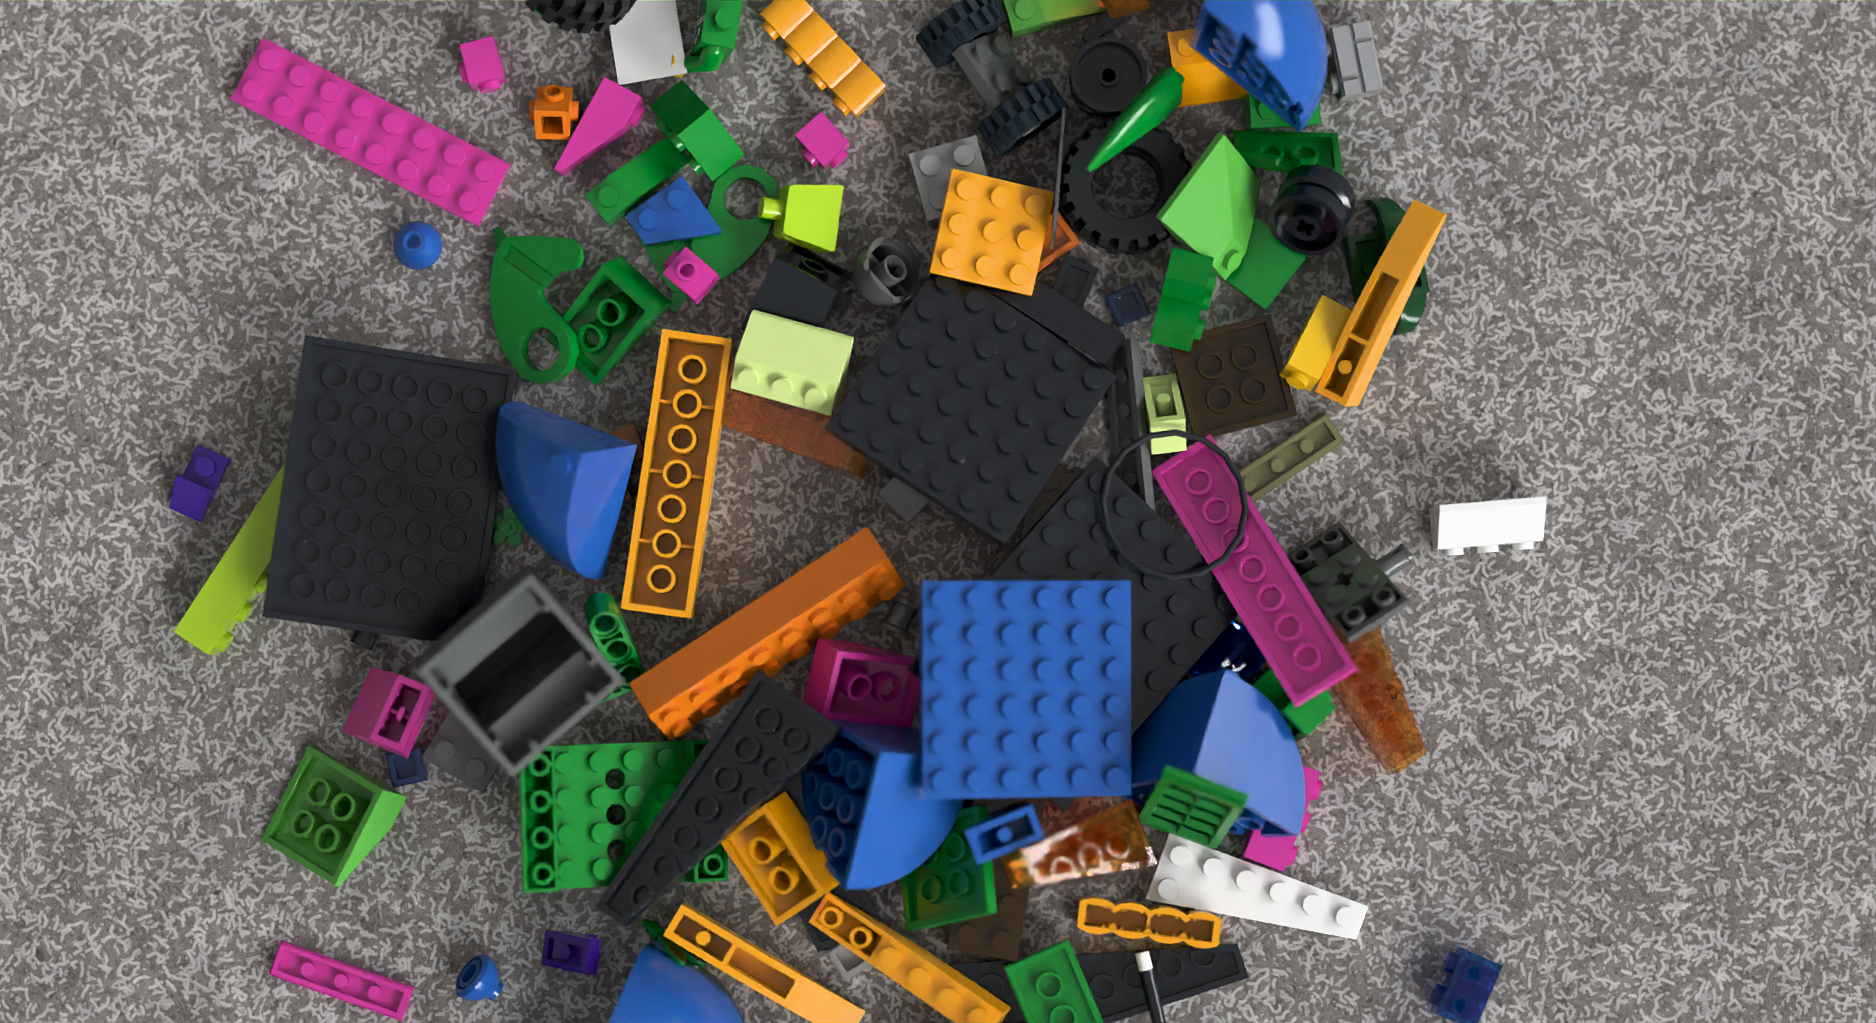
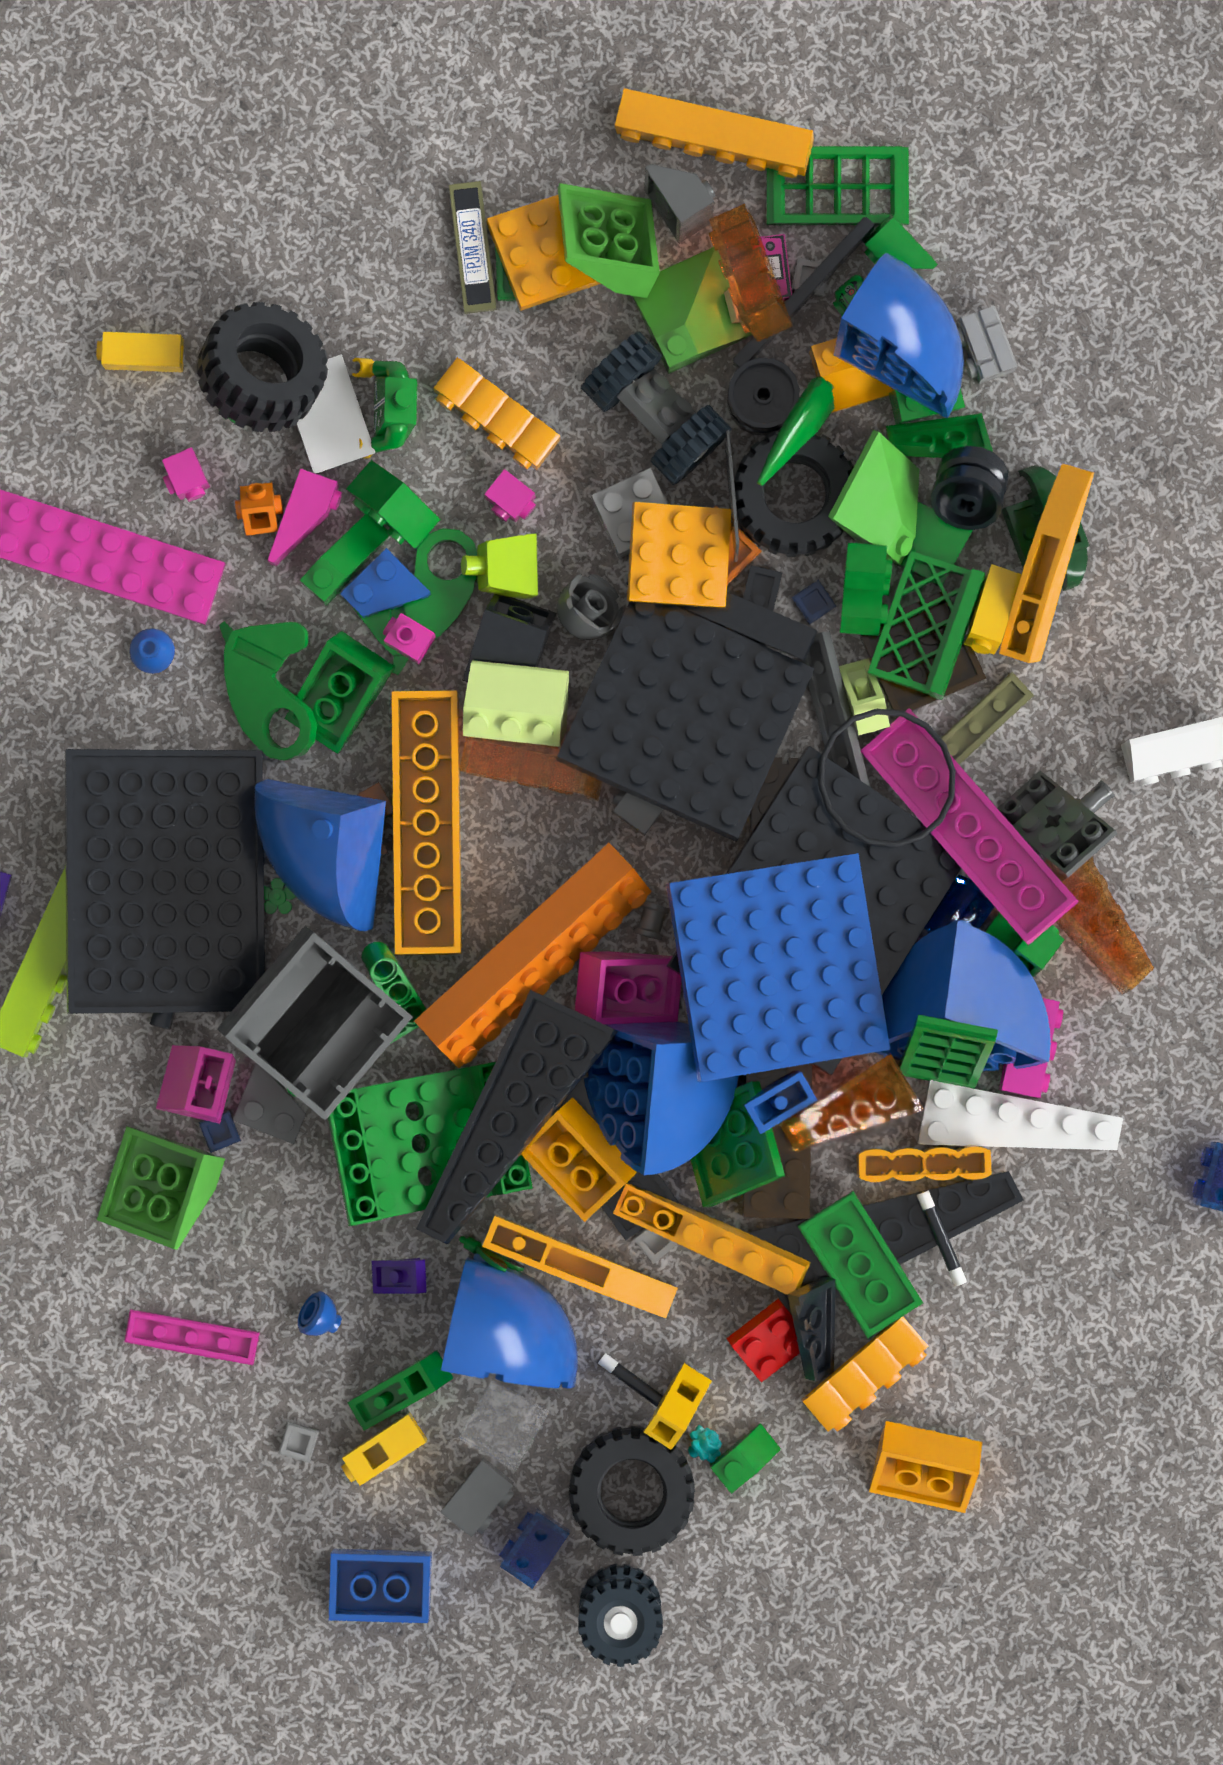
camera: 10 degrees left, 0 degrees up
(1270, 362) = (954, 632): none -> green fence

